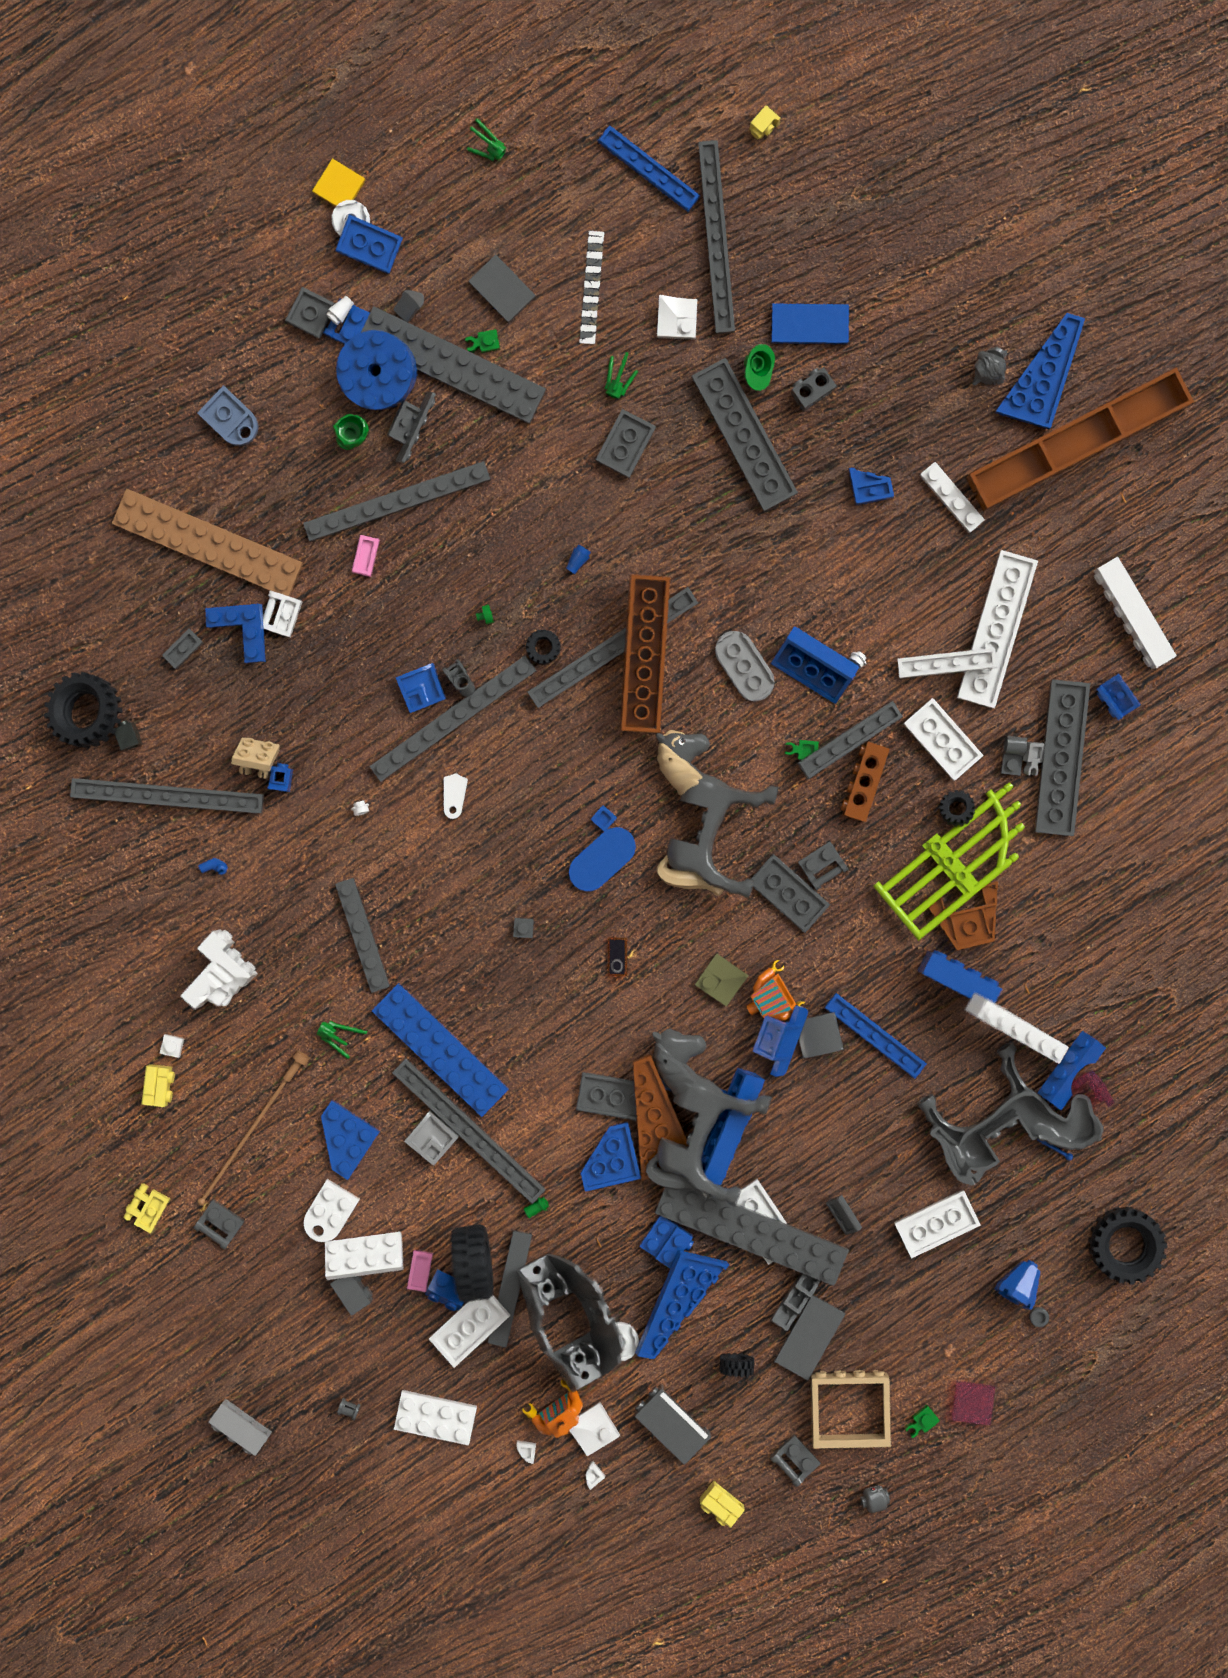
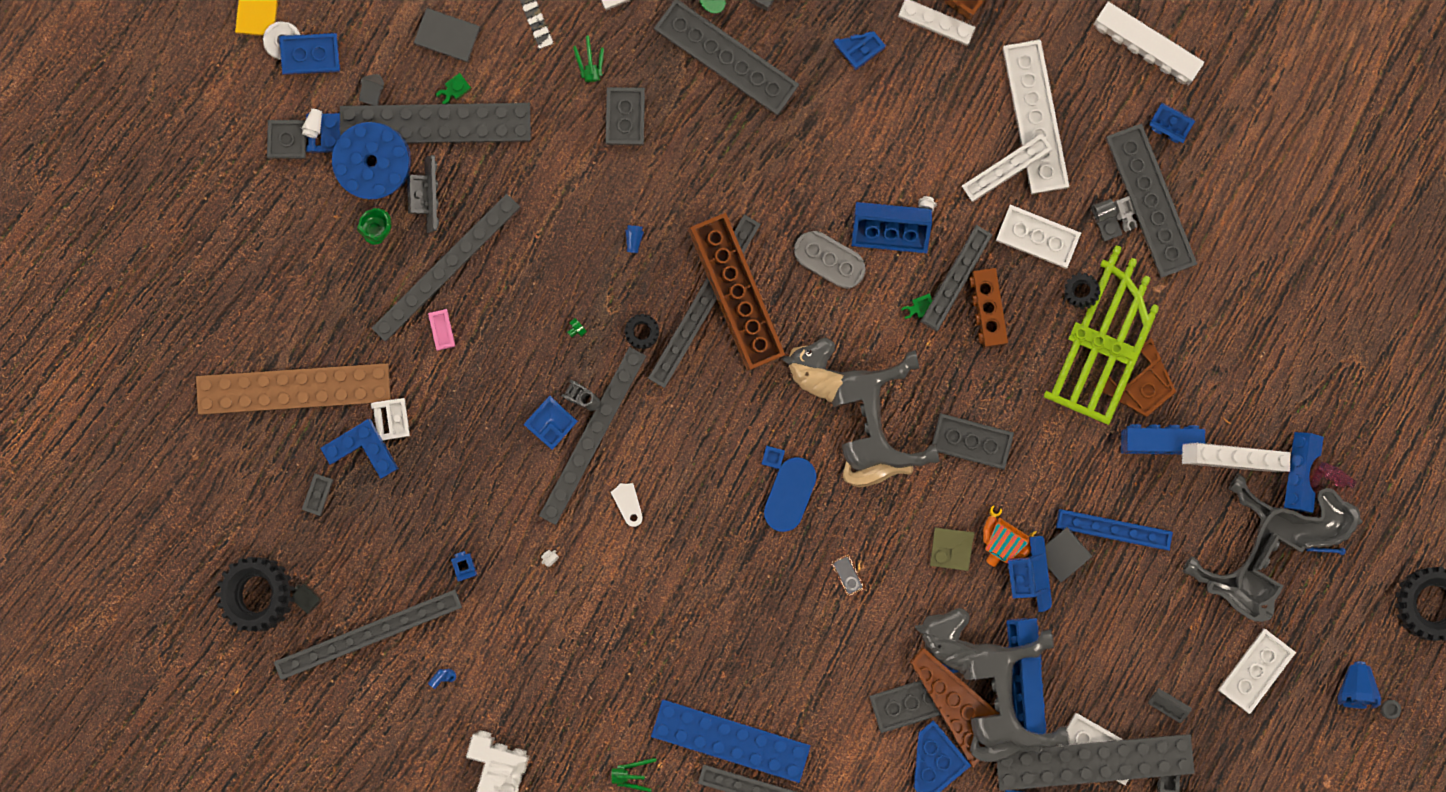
camera: 35 degrees left, 5 degrees down
(229, 417) = (258, 267): sand blue plate -> none
(255, 755) = (430, 557): tan plate -> none
(362, 935) = (608, 671): dark grey plate -> none
(523, 927) = (750, 592): dark grey plate -> none
(820, 859) = (984, 397): dark grey plate -> none

